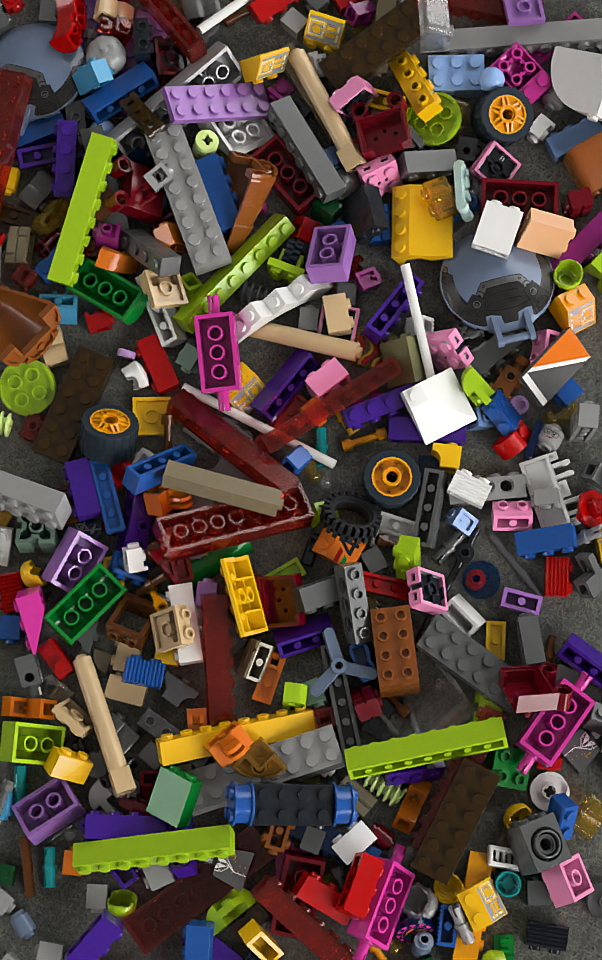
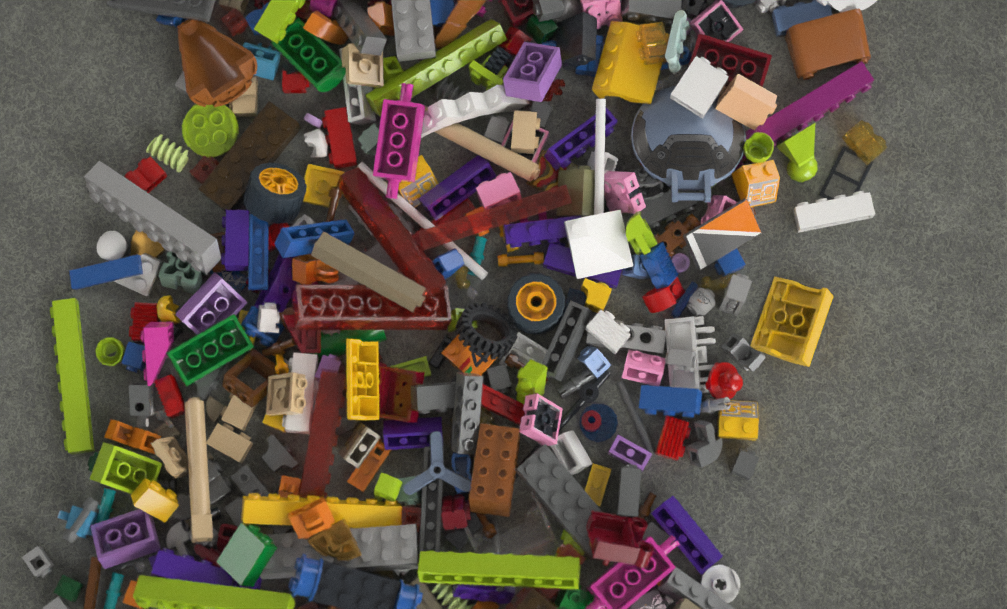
camera: 15 degrees right, 0 degrees up
(143, 672) = (249, 429): blue brick -> none
(368, 279) = (564, 105): magenta bracket -> none
(577, 203) = (787, 81): dark red brick -> none

